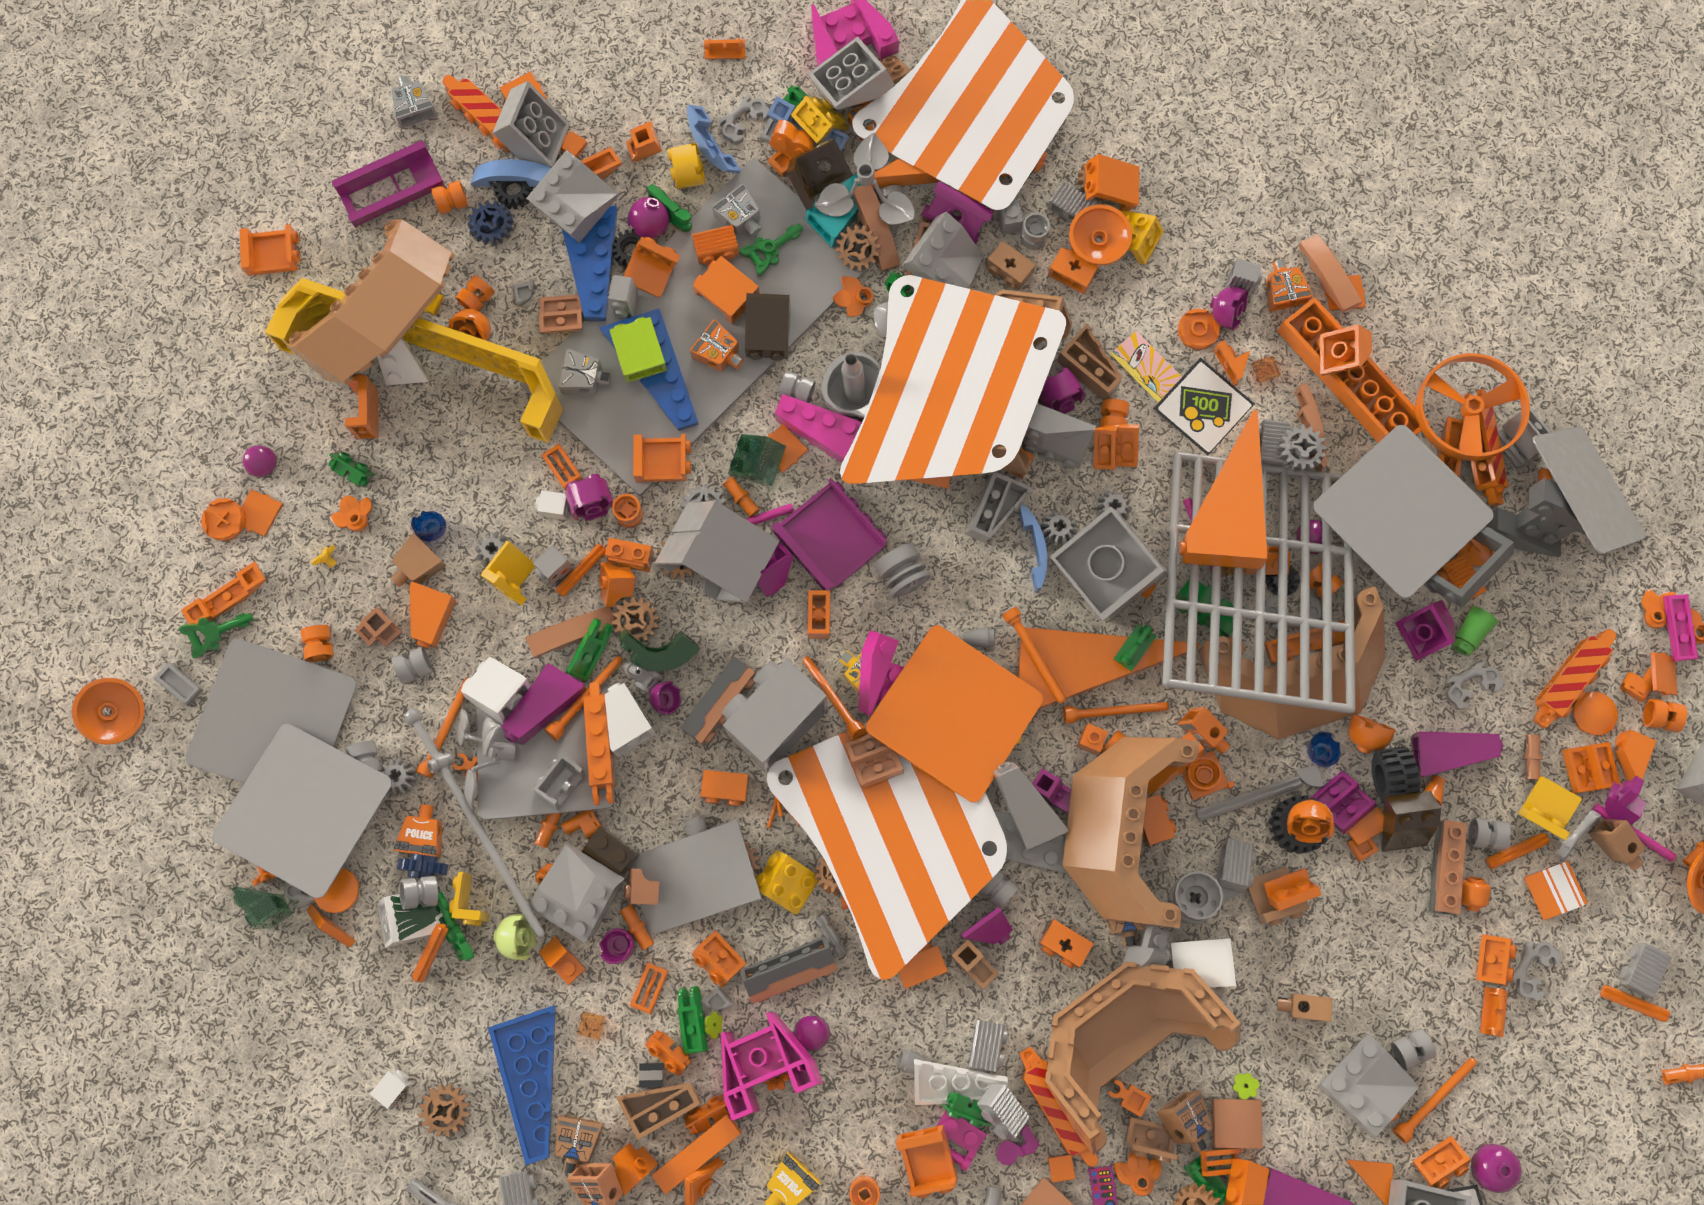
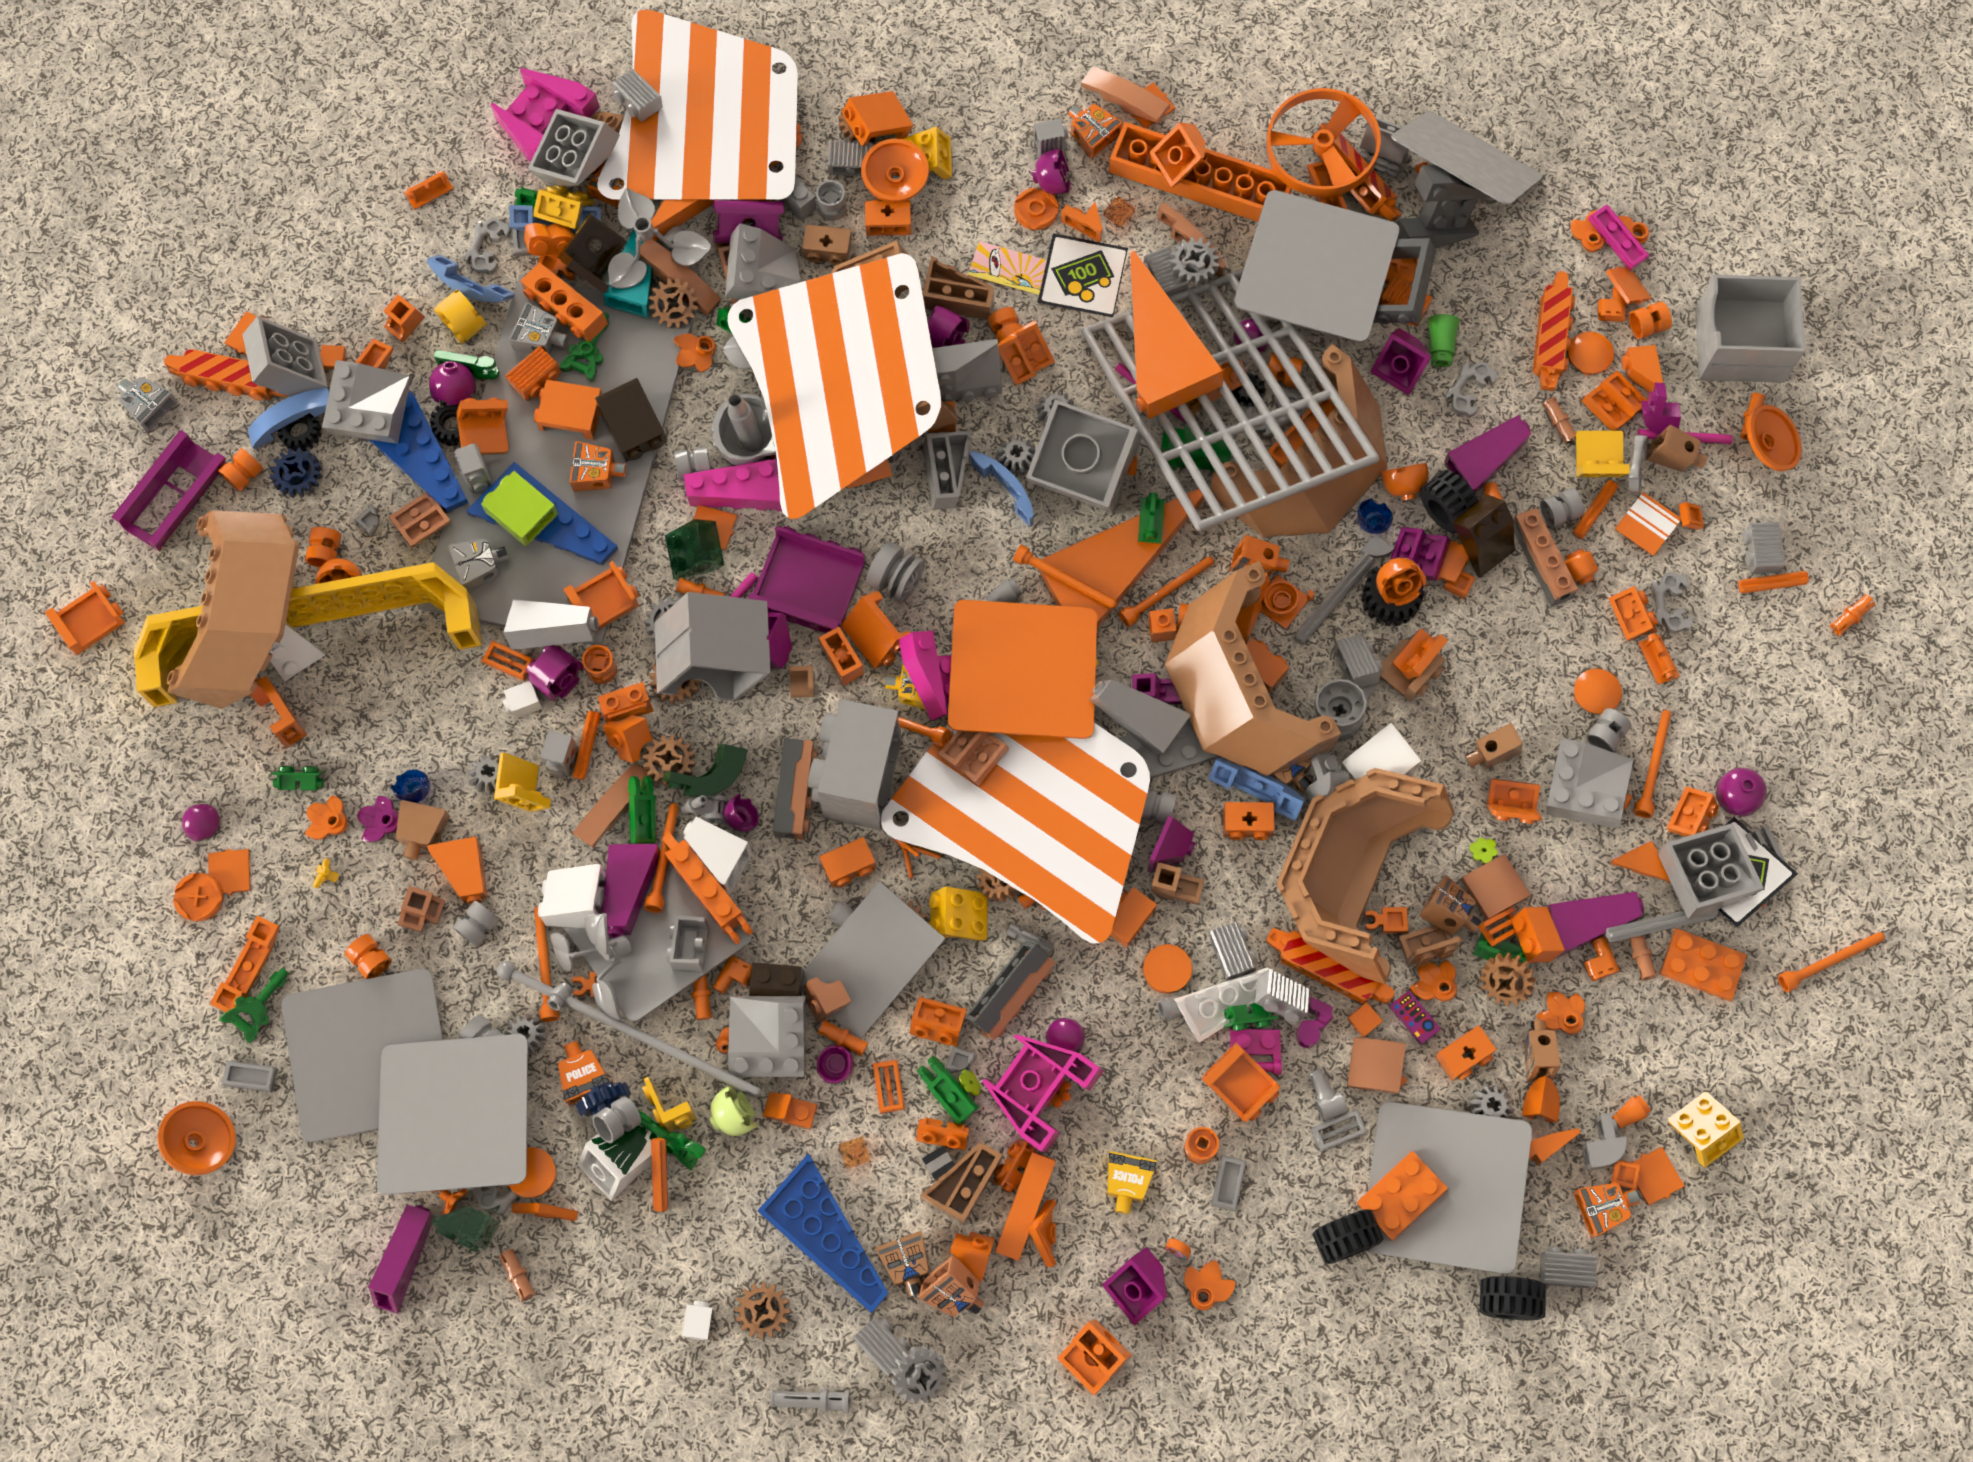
camera: 30 degrees left, 5 degrees down
(201, 897) = (400, 1259): none -> magenta slope
(279, 964) = (517, 1275): none -> nougat pin
(389, 535) = (376, 819): none -> magenta plate
(603, 457) = (548, 624): none -> slope
(766, 171) = (541, 280): none -> orange brick
(777, 617) = (802, 681): none -> medium nougat panel
(855, 610) = (873, 631): none -> orange panel
(926, 1027) = (1167, 968): none -> orange tile
(929, 59) = (636, 95): none -> light grey brick
(1098, 928) = (1267, 788): none -> medium blue slope
(1295, 1062) = (1513, 800): none -> orange bracket
(1424, 1008) = (1597, 690): none -> orange dish
(1597, 905) = (1691, 516): none -> orange tile

